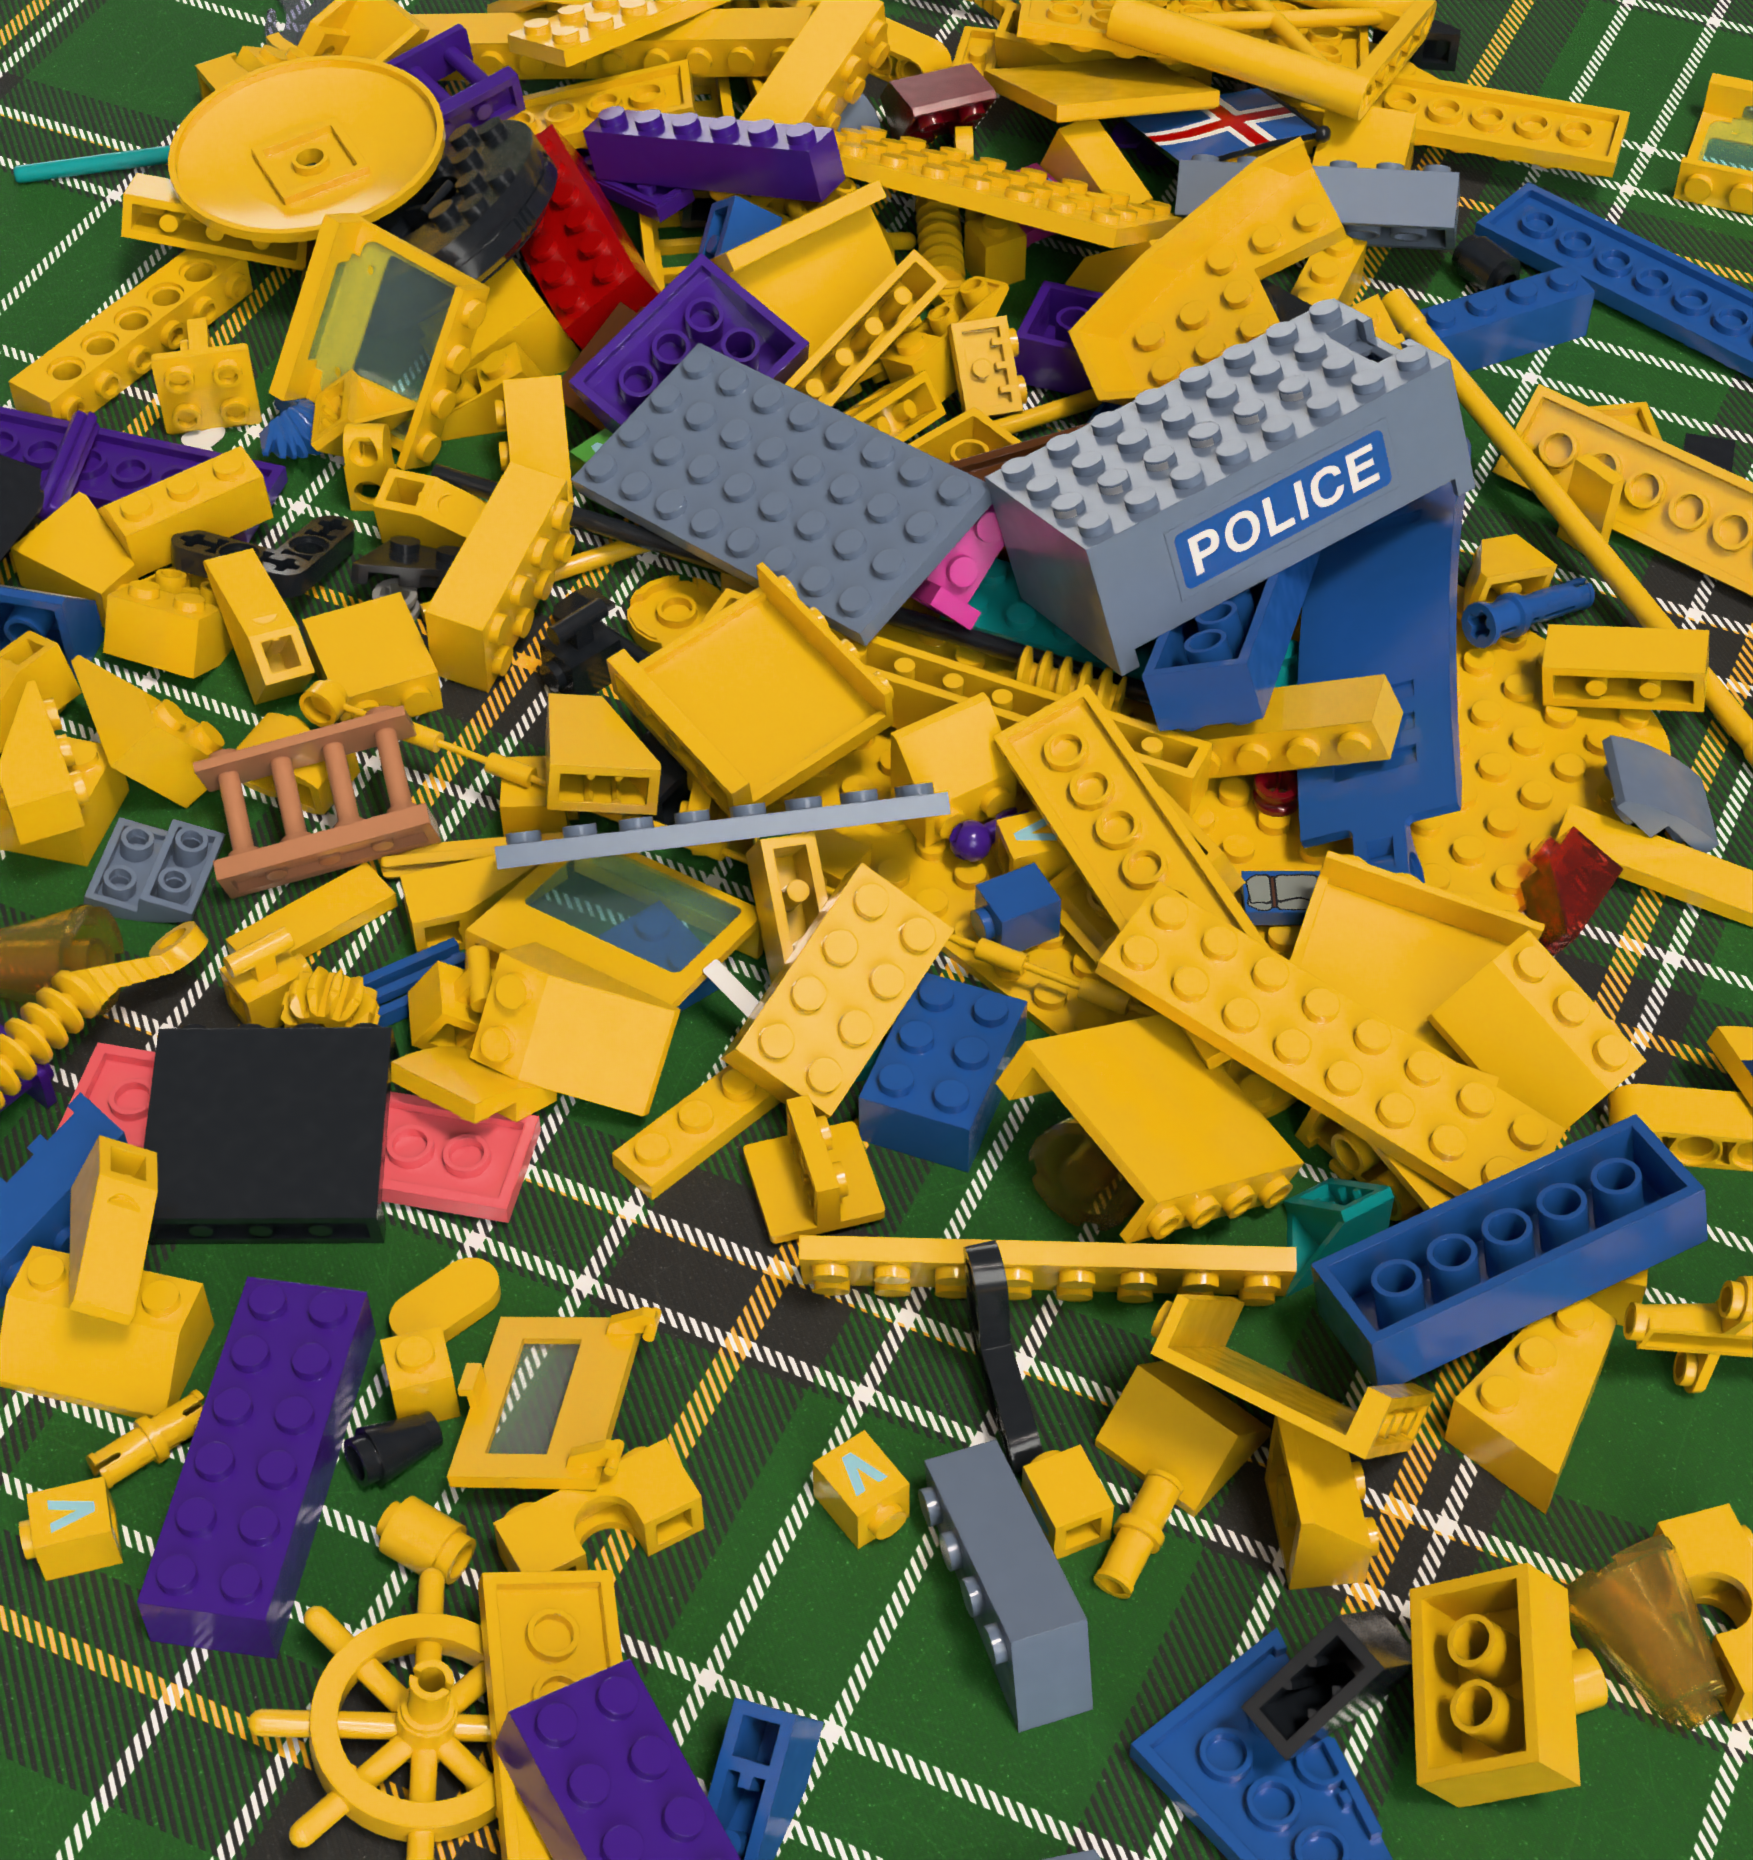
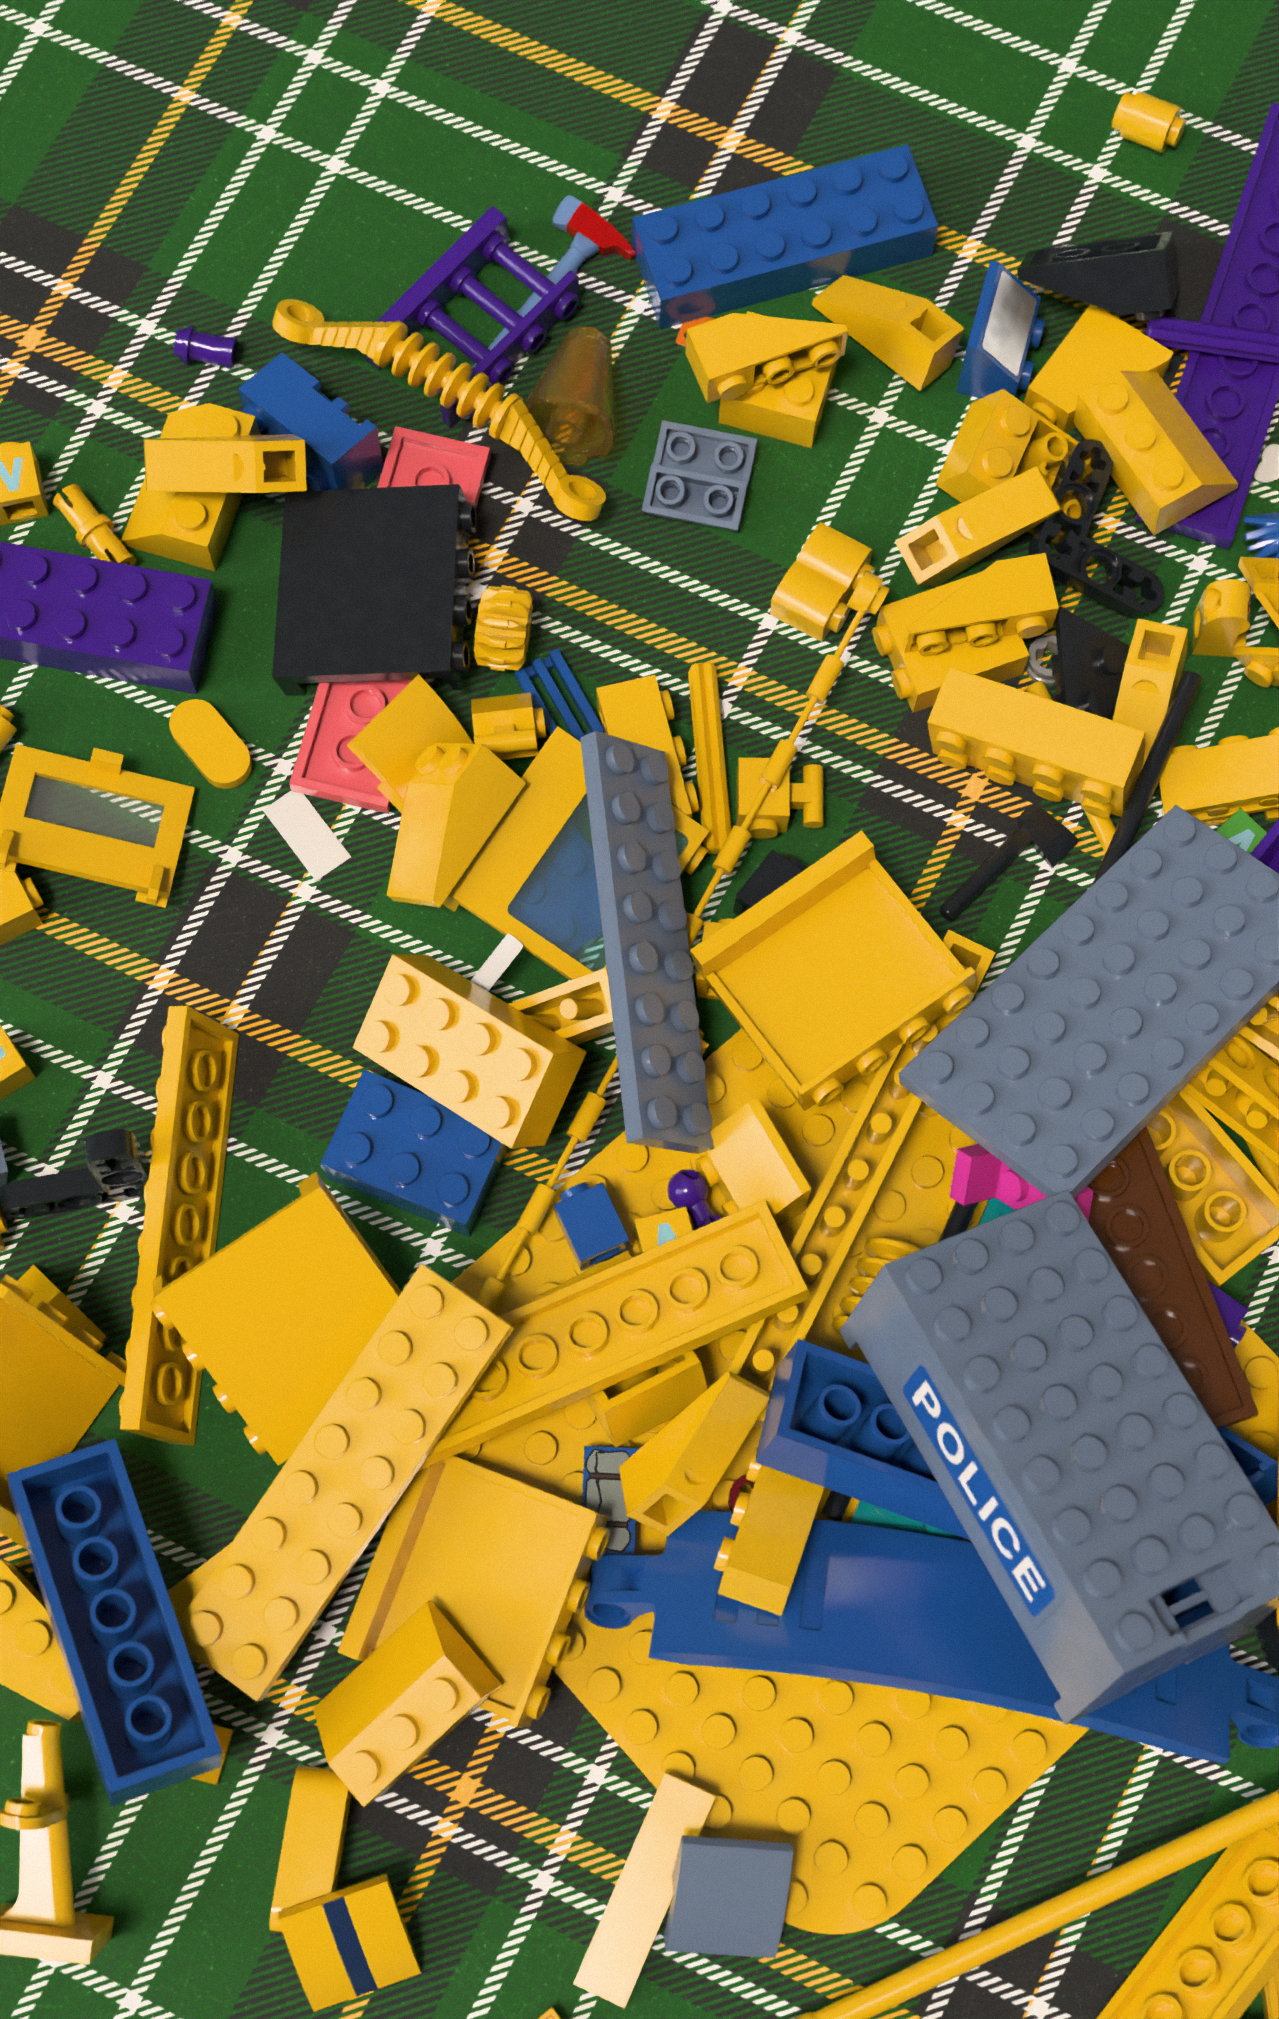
camera: 90 degrees right, 25 degrees up
(146, 736) = (848, 443): yellow slope -> none
(260, 976) = (548, 576): yellow brick -> none
(325, 912) = (635, 612): yellow tile -> none
(347, 604) = (998, 602): none -> yellow slope
(352, 838) = (694, 589): nougat fence -> none
(390, 1447) = (69, 707): black cone -> none
(421, 1374) = (125, 722): yellow brick -> none
(559, 1212) = (307, 834): none -> white sticker
(578, 651) = (955, 829): black brick -> none
(596, 759) = (765, 826): yellow slope -> none
(668, 609) = (1020, 915): yellow tile -> none
(692, 1131) = (366, 924): yellow plate -> none
(812, 1176) = (310, 1040): yellow bracket -> none
(1264, 805) = (688, 1457): none -> yellow slope
(1331, 1219) = (224, 1486): teal slope -> none
(1506, 566) = (1060, 1784): yellow slope -> none
(1515, 613) = (998, 1785): blue pin -> none
(1566, 886) = (603, 1774): clear red slope -> none
(1596, 493) = (1162, 1901): yellow tile -> none
(1625, 667) = (900, 1890): yellow brick -> none

